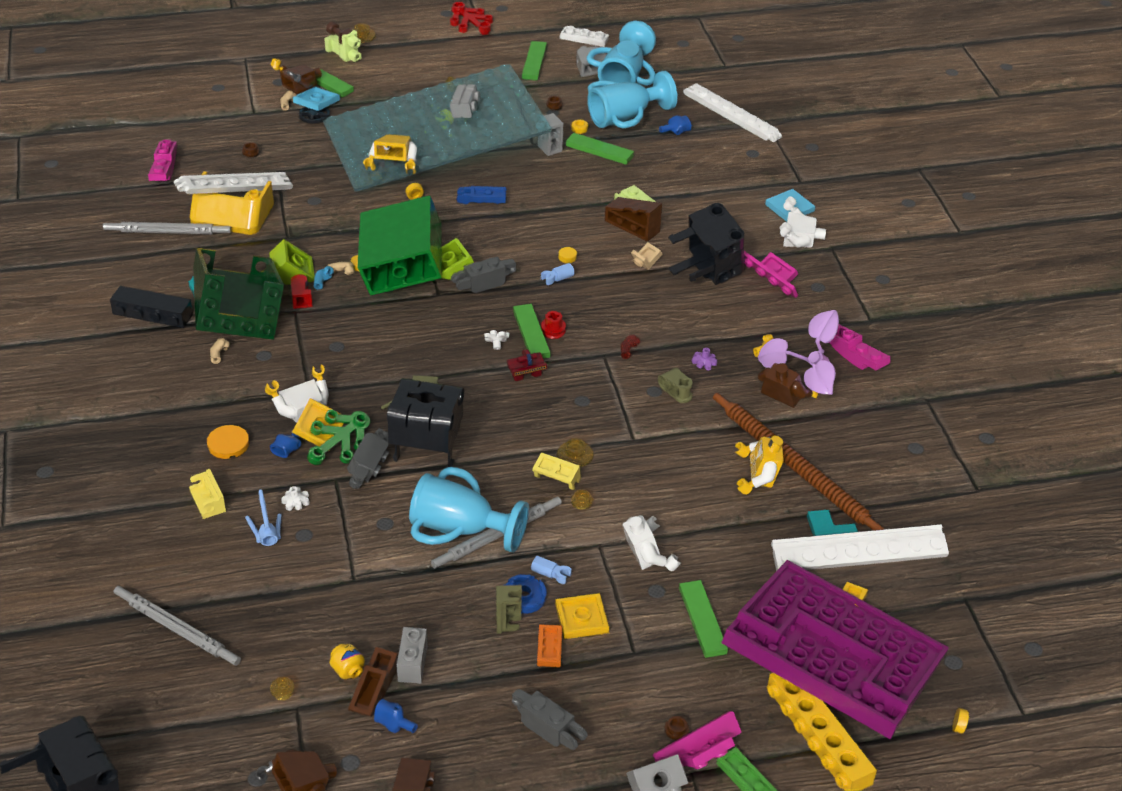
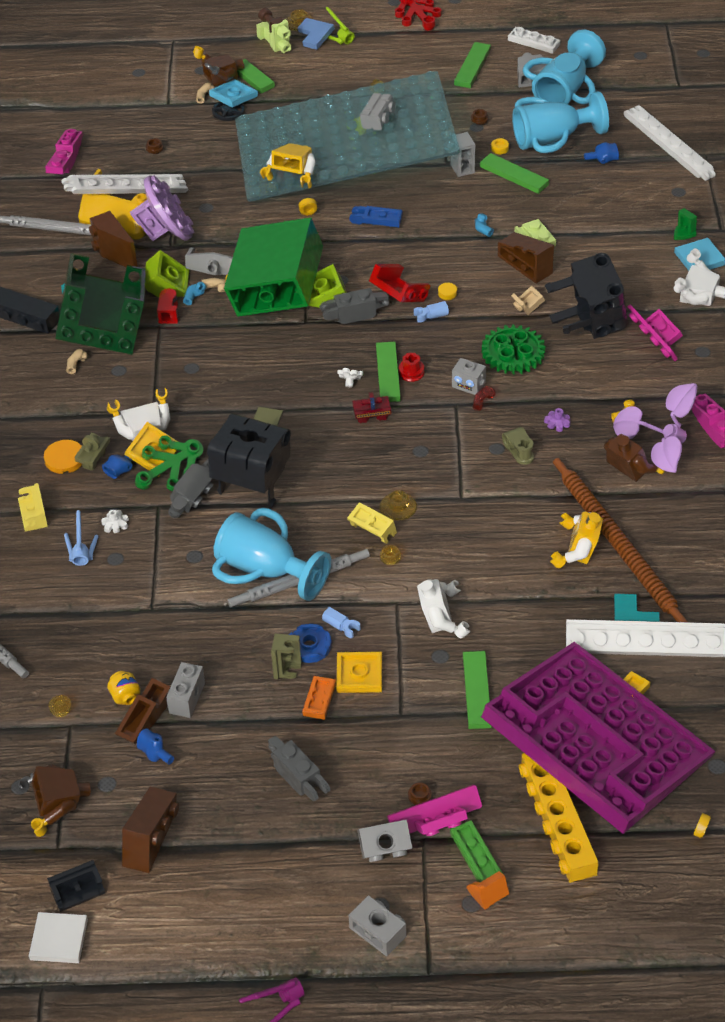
camera: 15 degrees right, 5 degrees up
(232, 235) = (112, 240): none -> reddish brown slope
(256, 432) = (91, 450): none -> olive hips
(275, 205) = (162, 212): none -> lavender bracket
(333, 248) = (208, 263): none -> light grey piece
(382, 42) = (316, 32): none -> medium blue tile
(408, 41) = (344, 33): none -> lime plant
(510, 247) = (388, 279): none -> red panel
(583, 196) = (481, 225): none -> dark azure arm
(611, 327) = (468, 376): none -> light grey head
(645, 300) = (500, 352): none -> green gear
(770, 179) = (686, 225): none -> green tile

